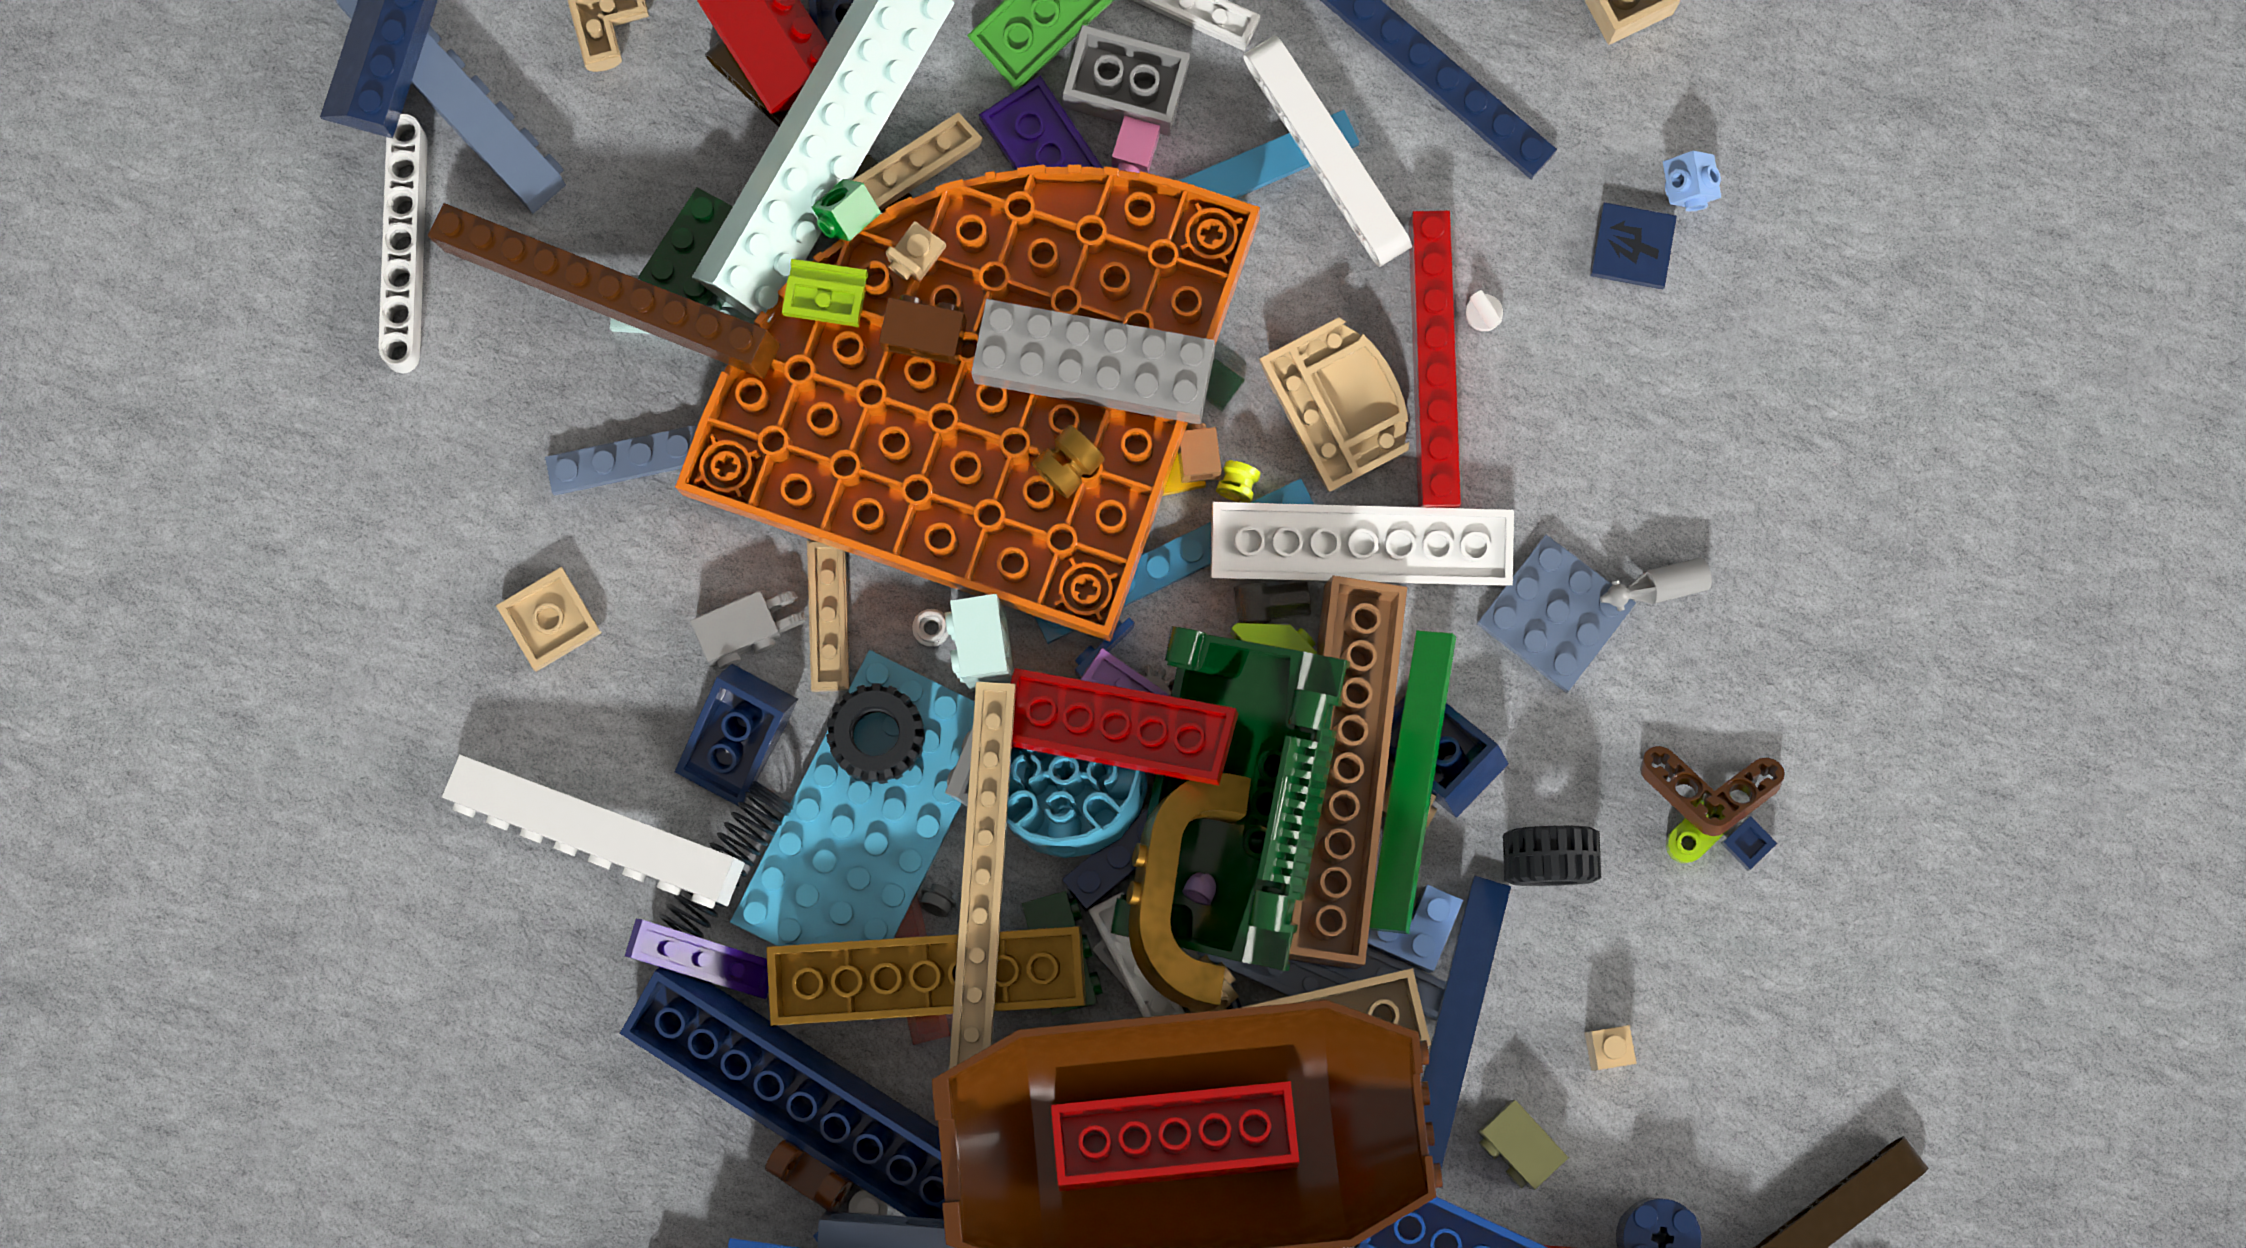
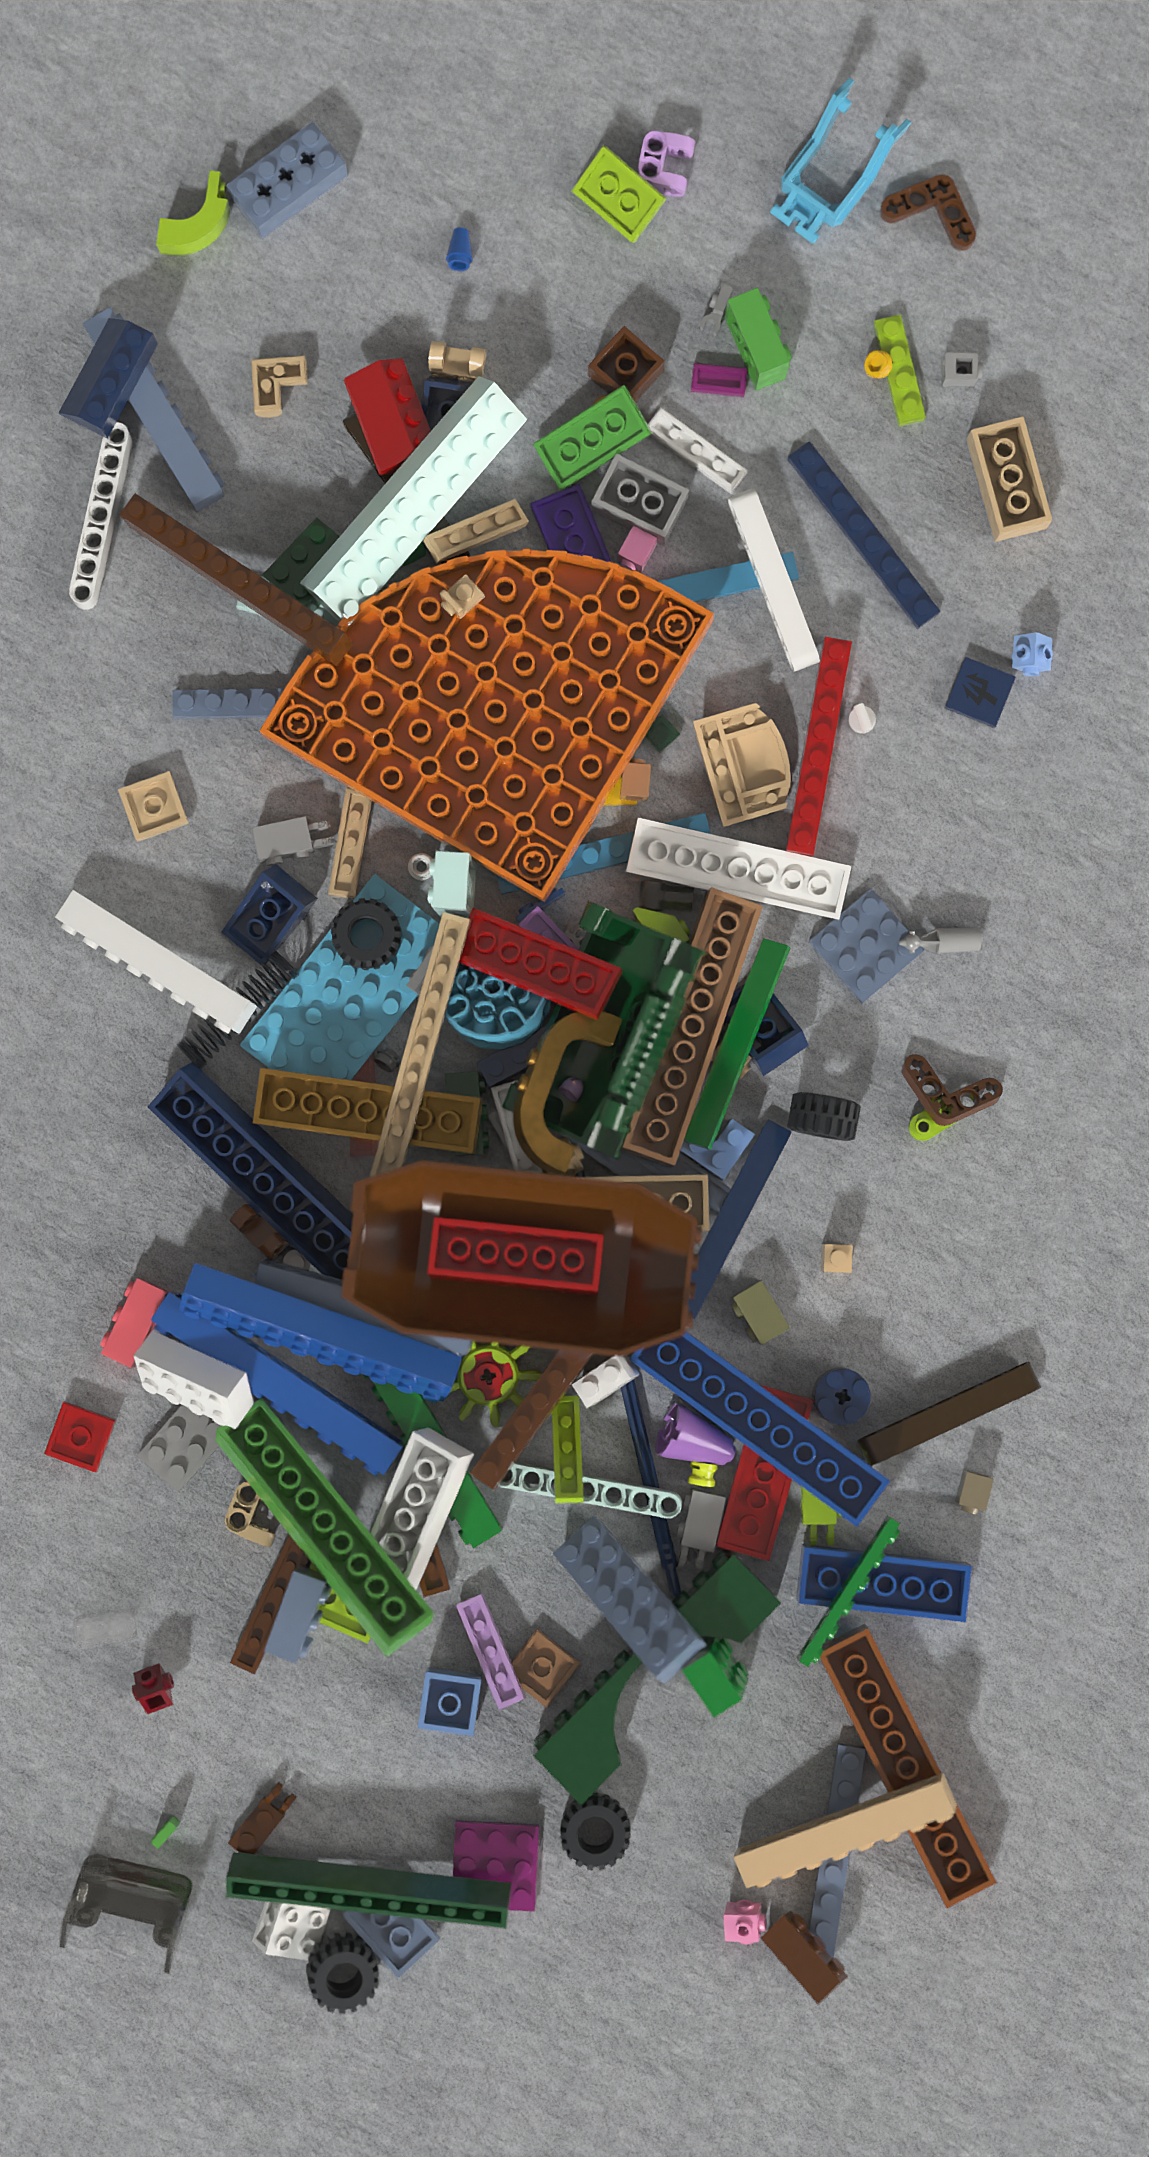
camera: 15 degrees right, 5 degrees up
(698, 958) = (211, 1066): plate -> none
(825, 292) = (391, 613): lime plate -> none
(845, 210) = (418, 556): brick -> none
(923, 329) = (455, 654): reddish brown brick -> none
(1070, 447) = (547, 763): pearl gold wheel -> none
(1093, 361) = (571, 701): light grey brick -> none
(1238, 481) = (659, 806): neon yellow wheel -> none
(1749, 843) = (966, 1135): dark blue plate -> none

